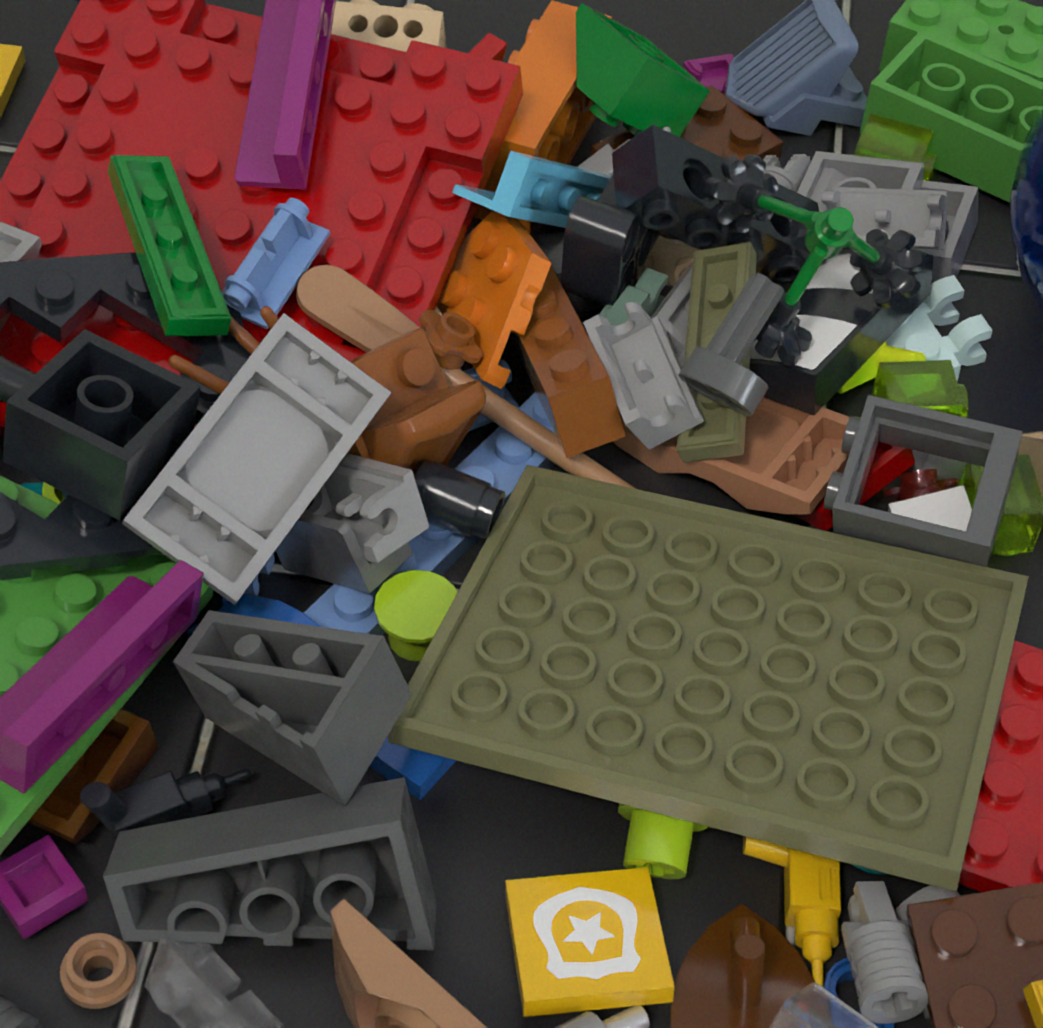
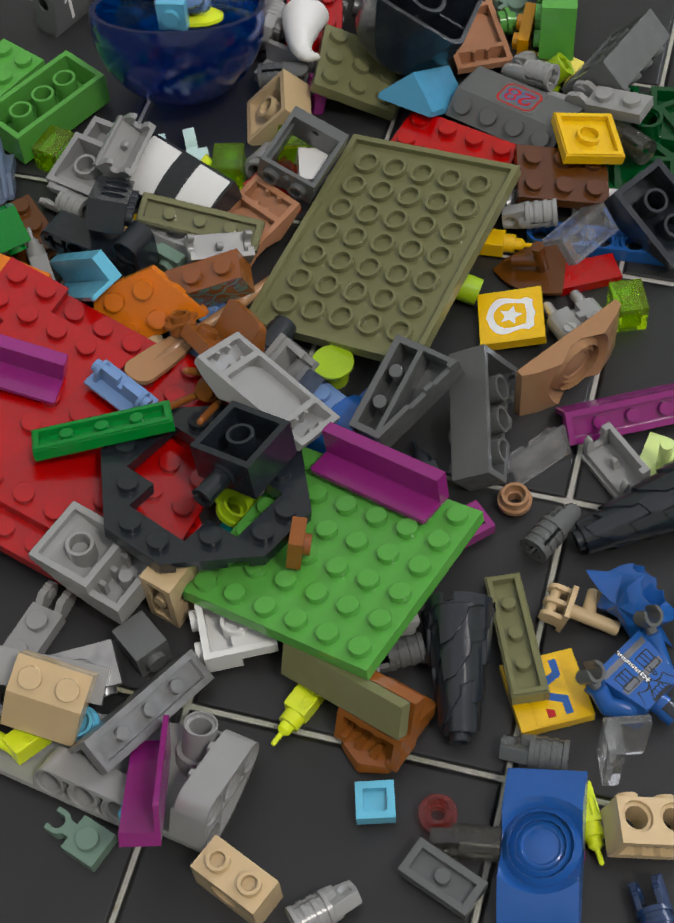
camera: 75 degrees left, 5 degrees up
(717, 369) = (228, 214): dark grey piece -> none
(882, 262) = (175, 142): black plant -> none

